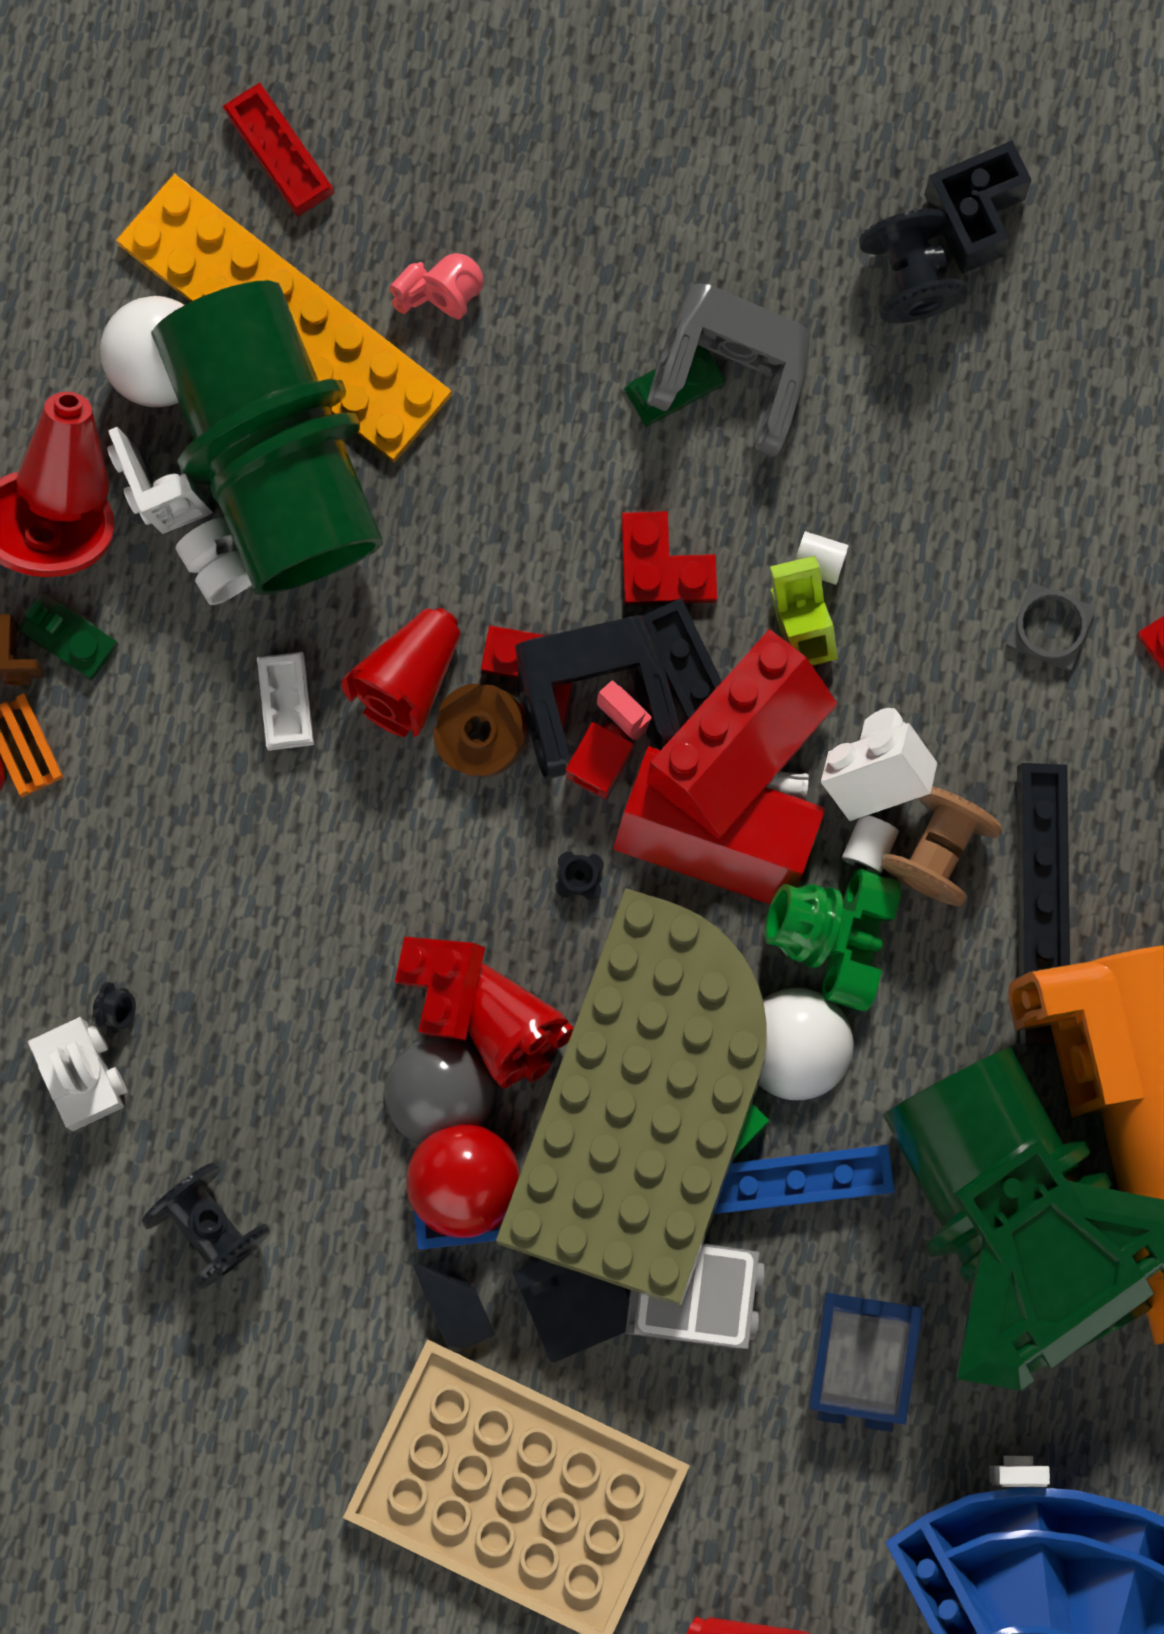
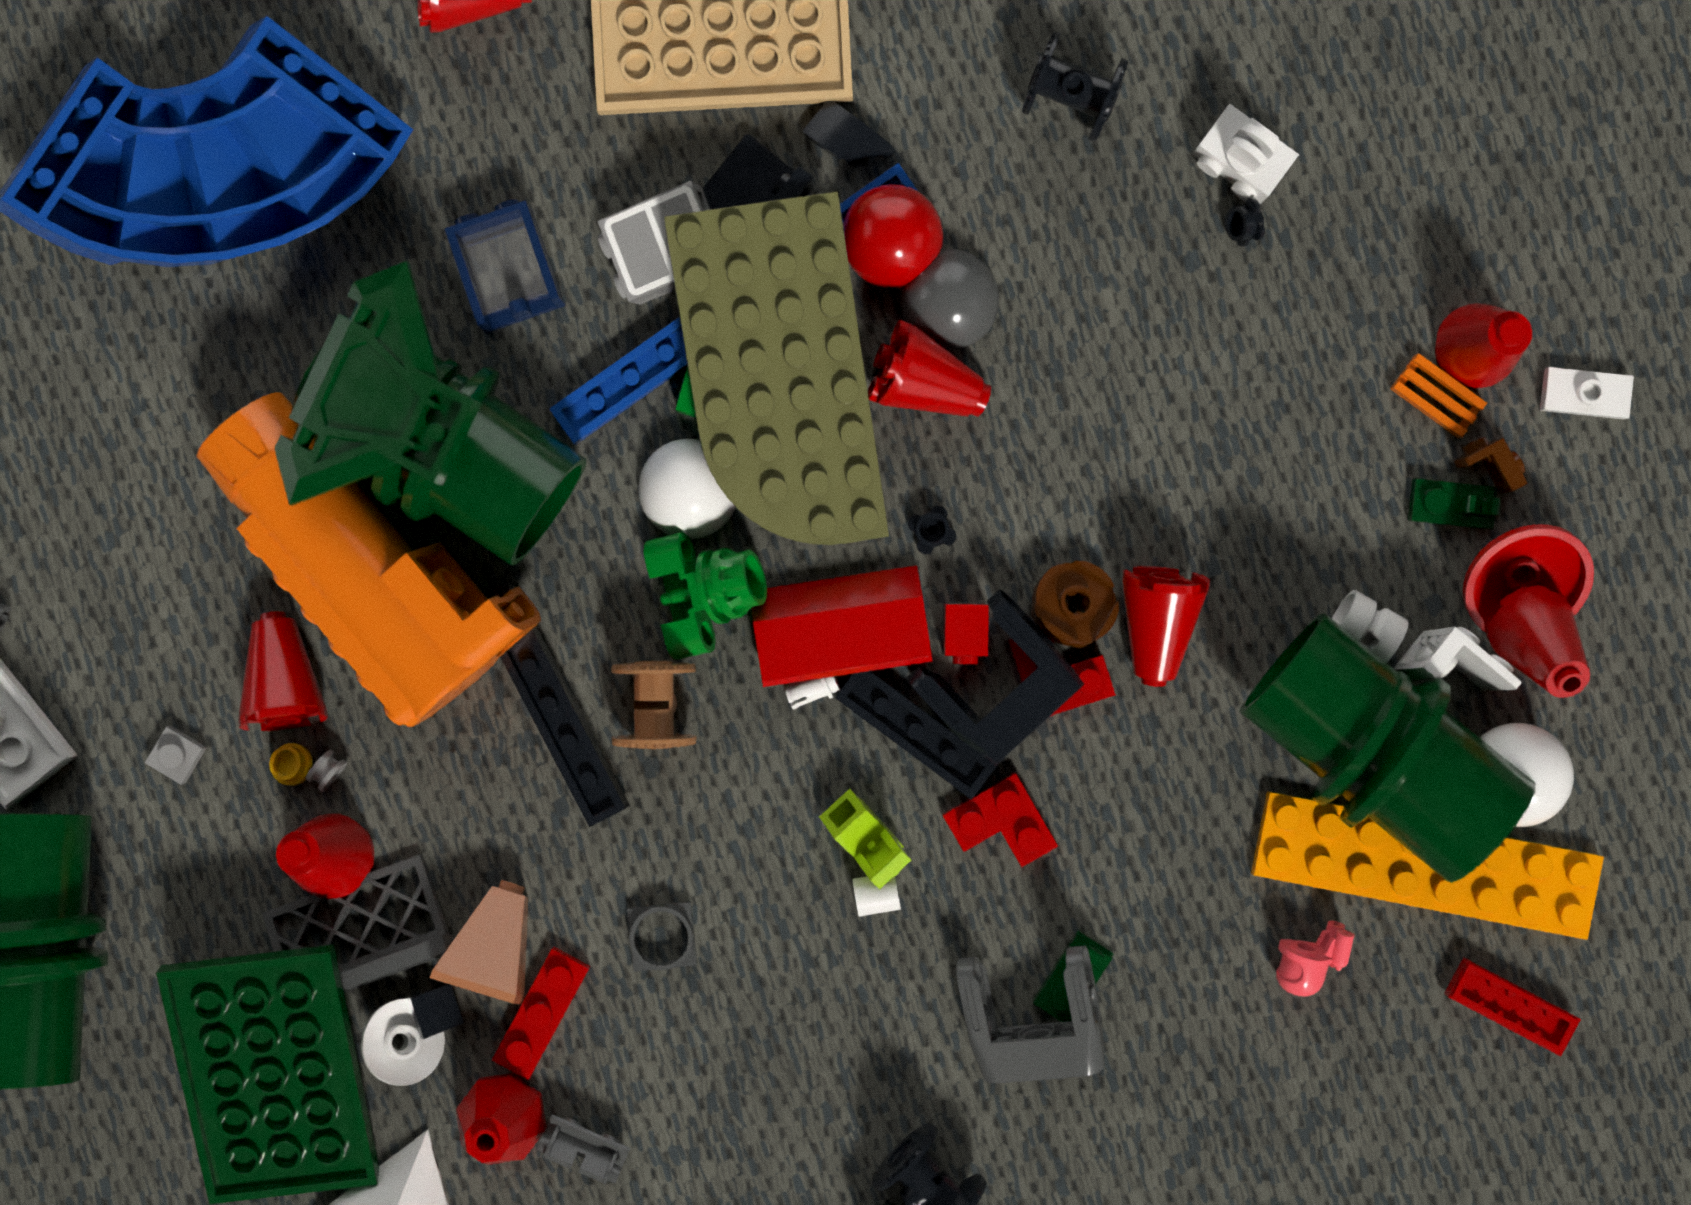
camera: 150 degrees right, 10 degrees up
(285, 701) = (1246, 544): white plate -> none
(451, 978) = (987, 387): red plate -> none
(623, 710) = (967, 678): coral slope -> none
(742, 735) = (859, 708): red slope -> none
(869, 843) = (713, 678): white beam -> none
(879, 769) = (733, 742): white brick -> none
(1019, 1472) = (335, 236): white plate -> none

